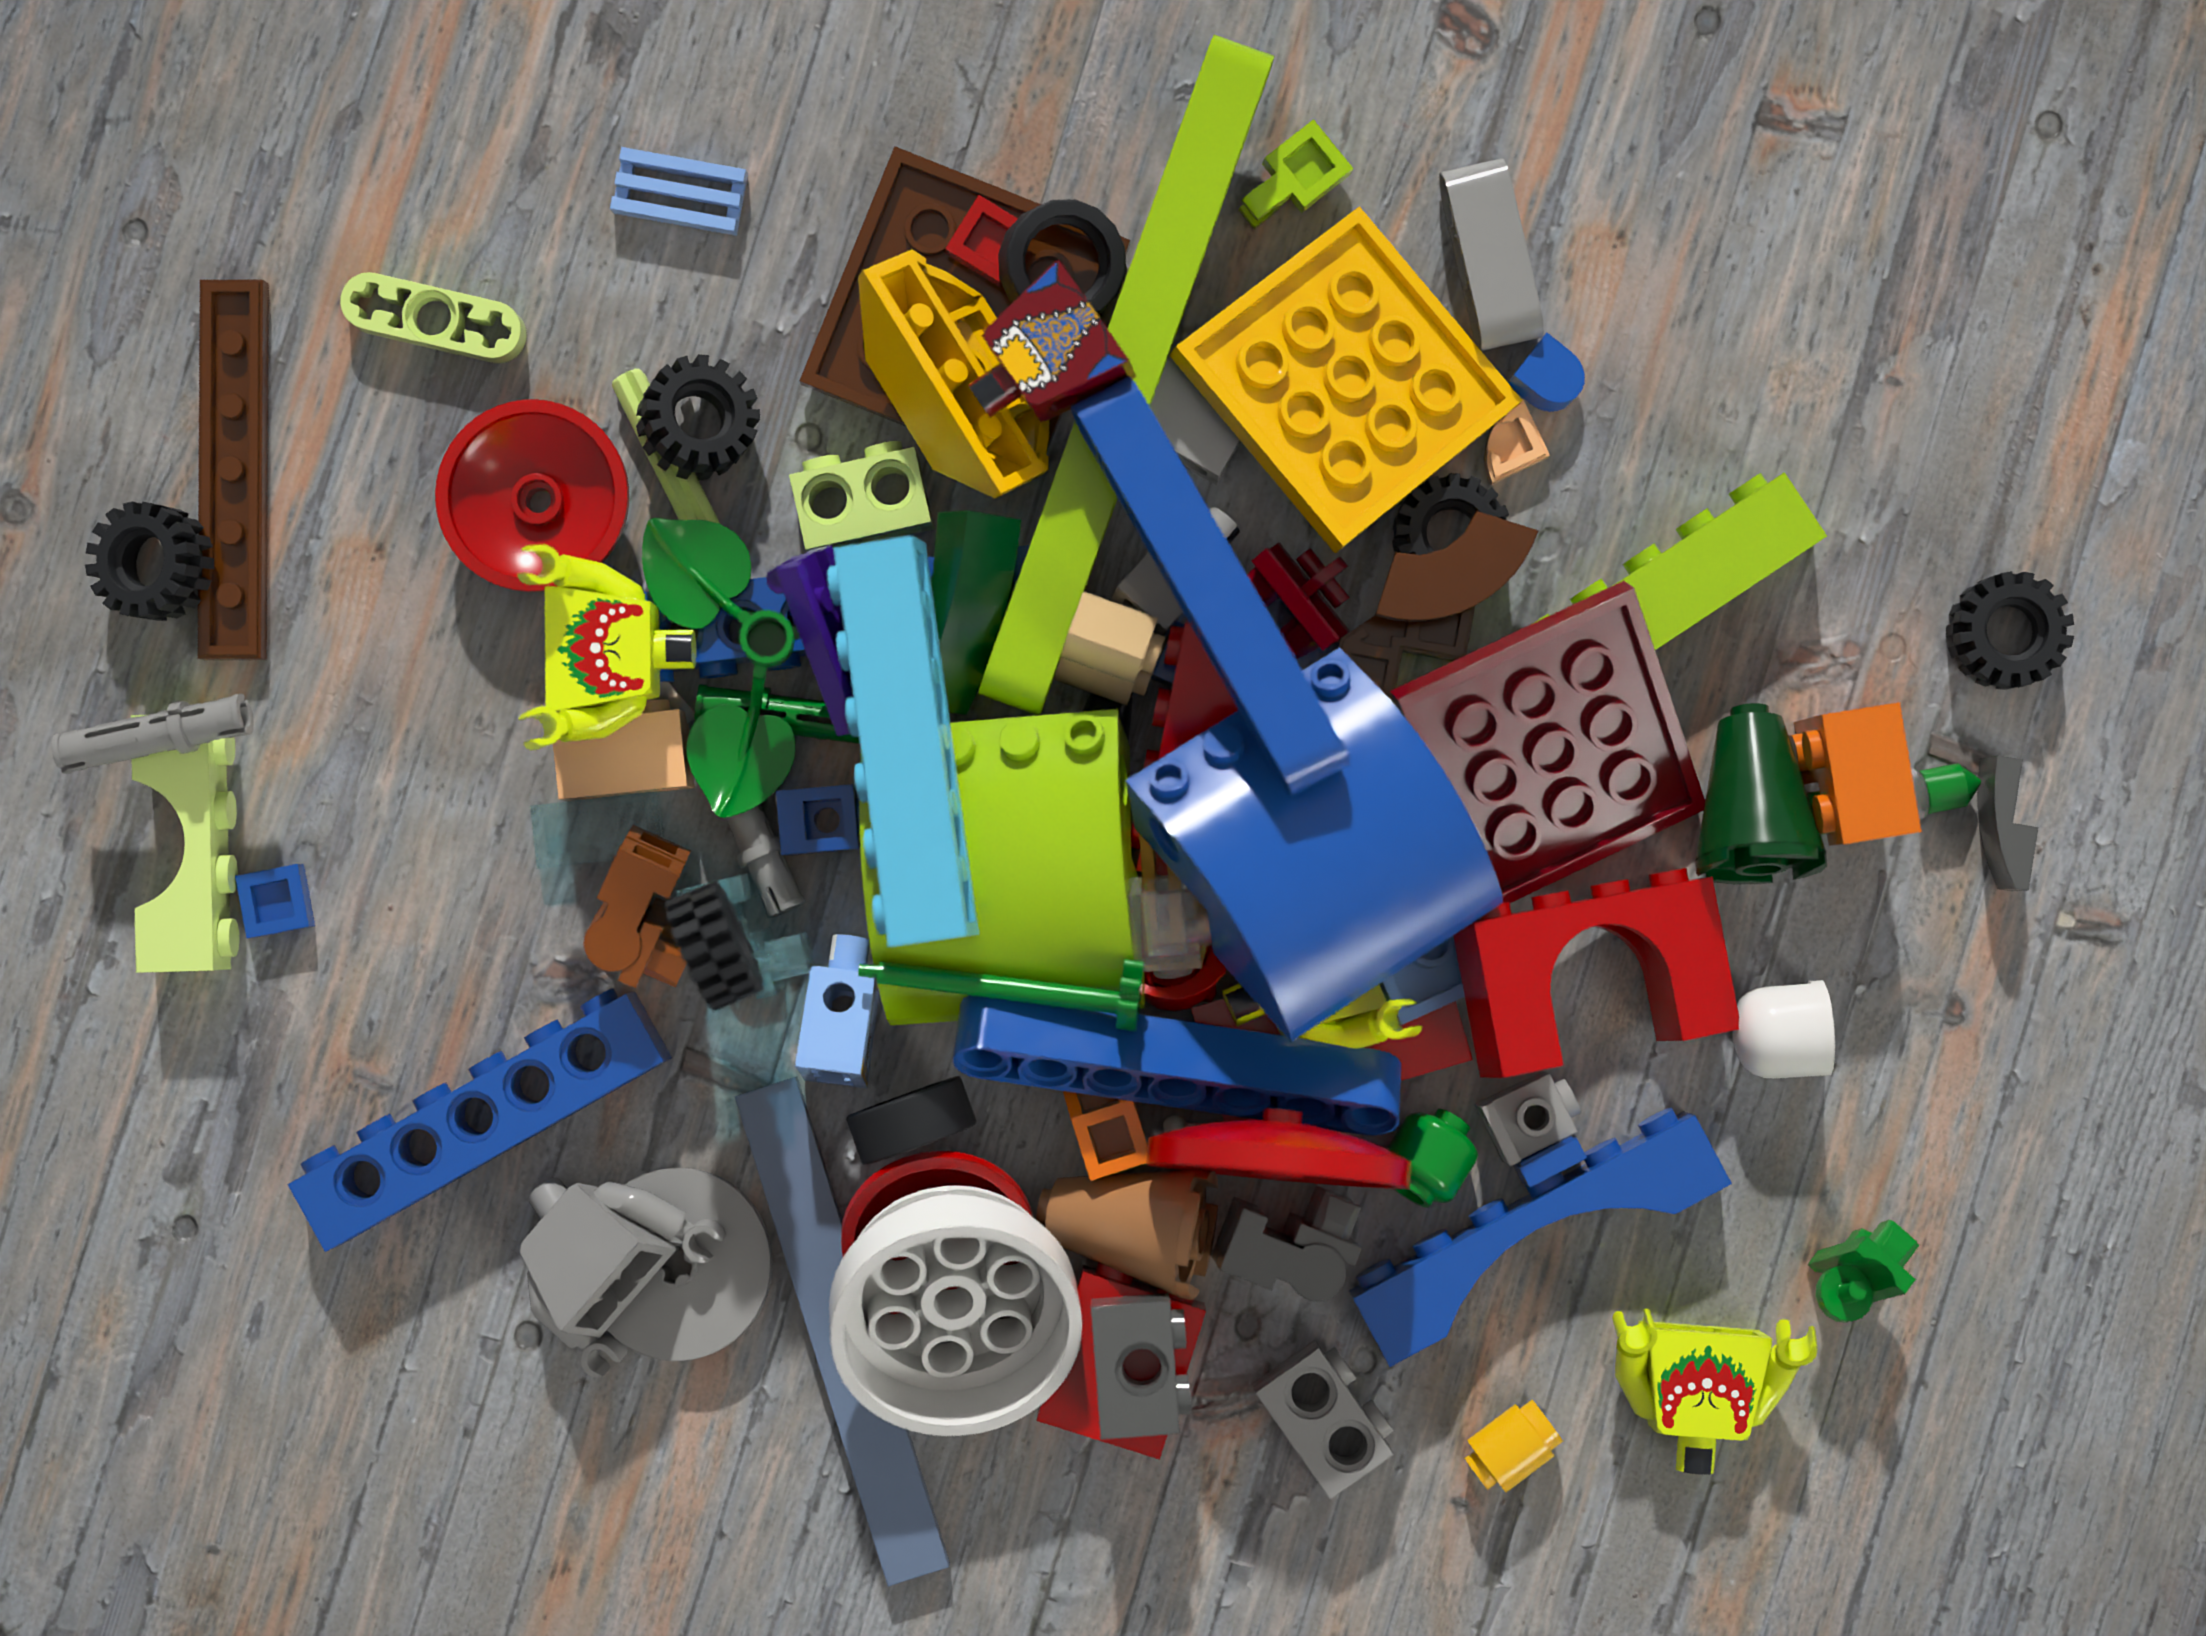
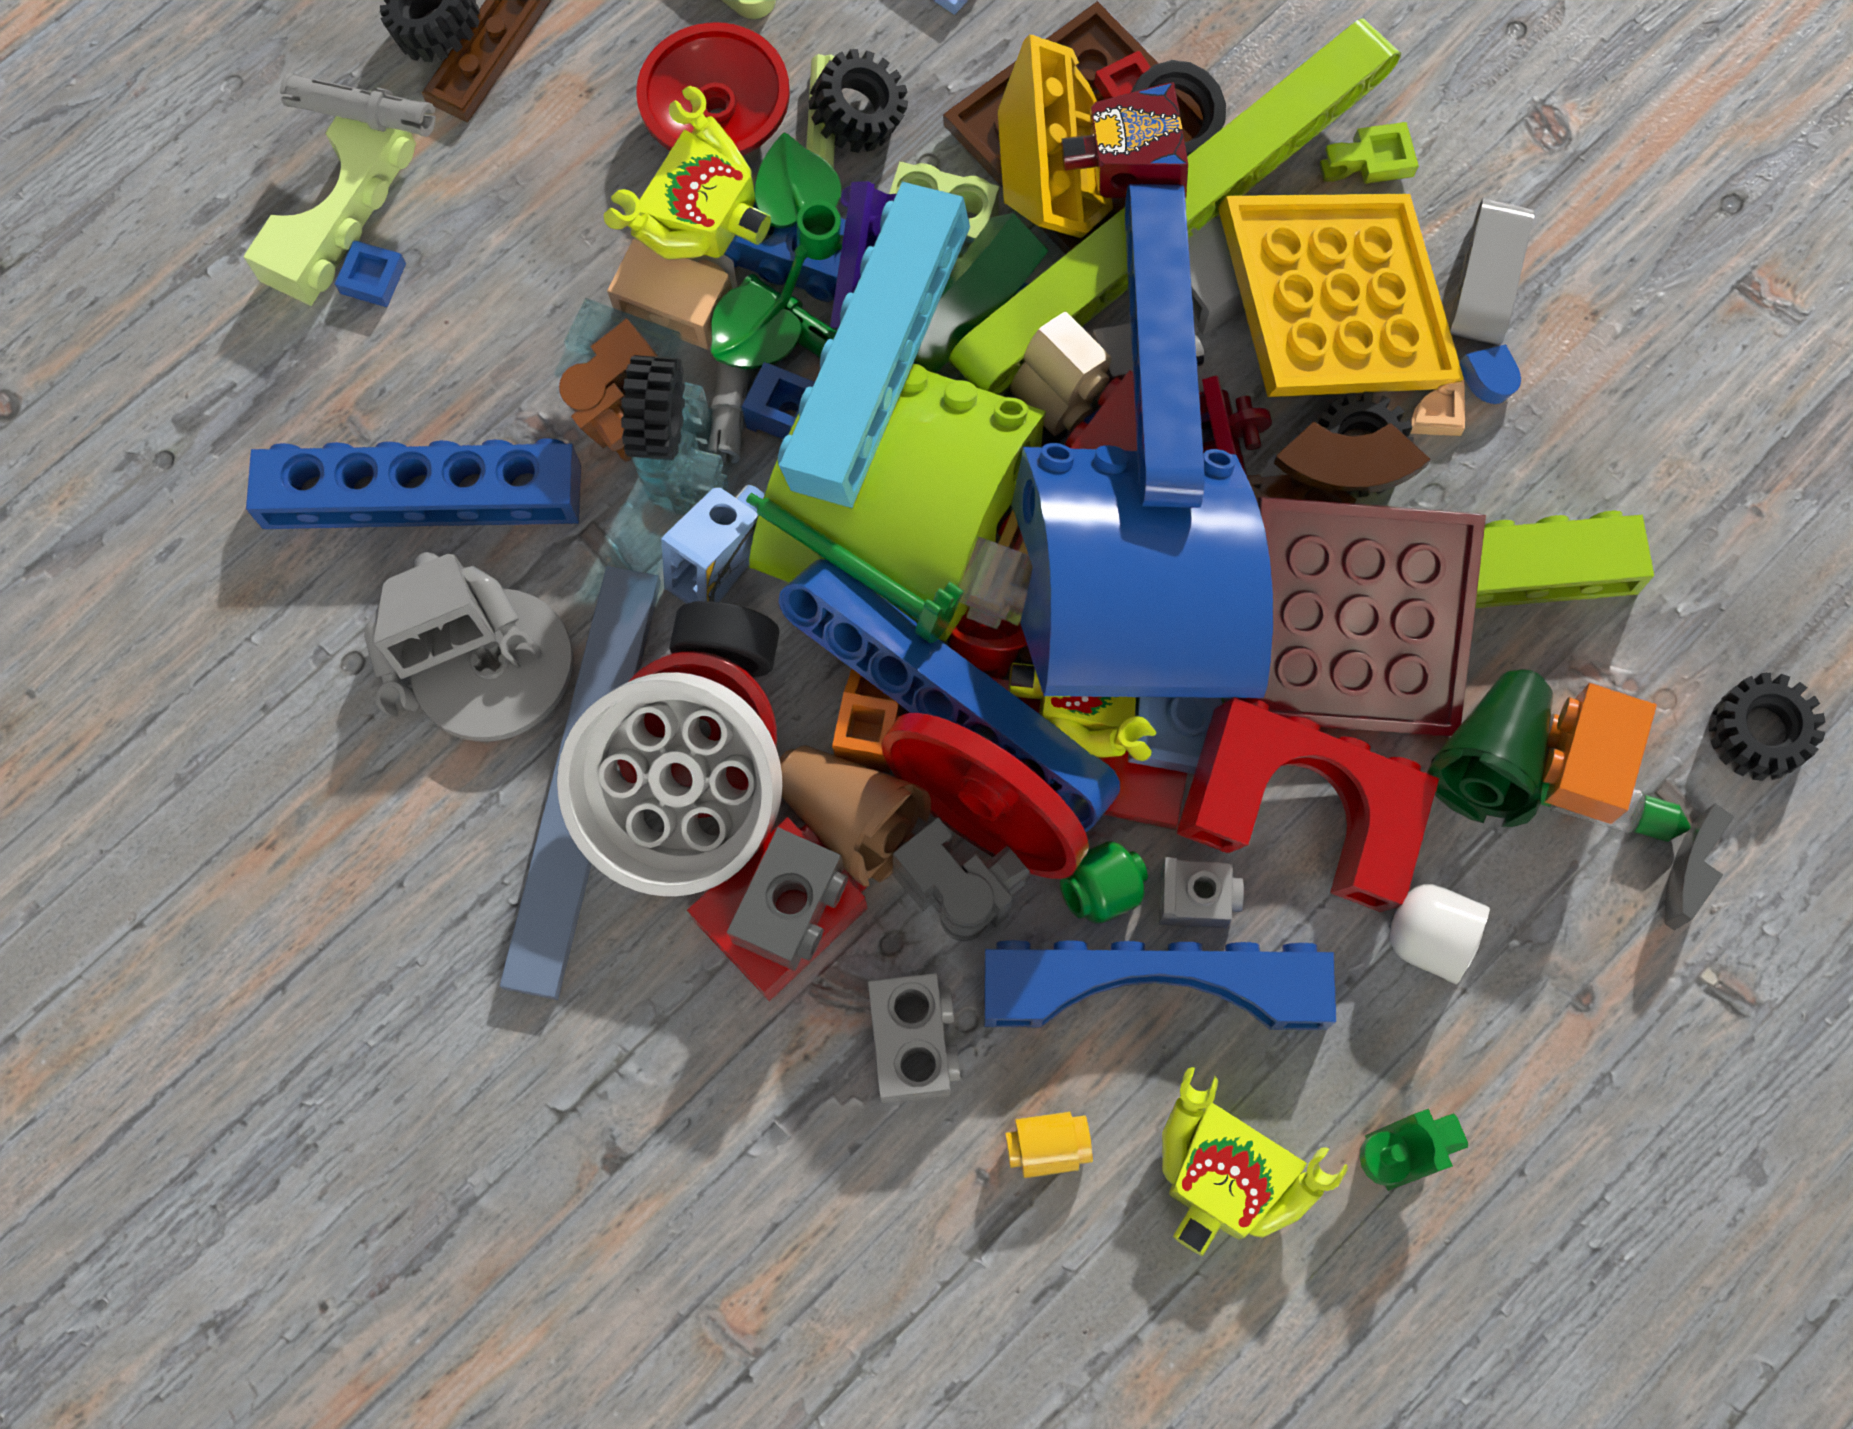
camera: 25 degrees right, 15 degrees down
(1549, 1161) = (1209, 931): blue tile -> none

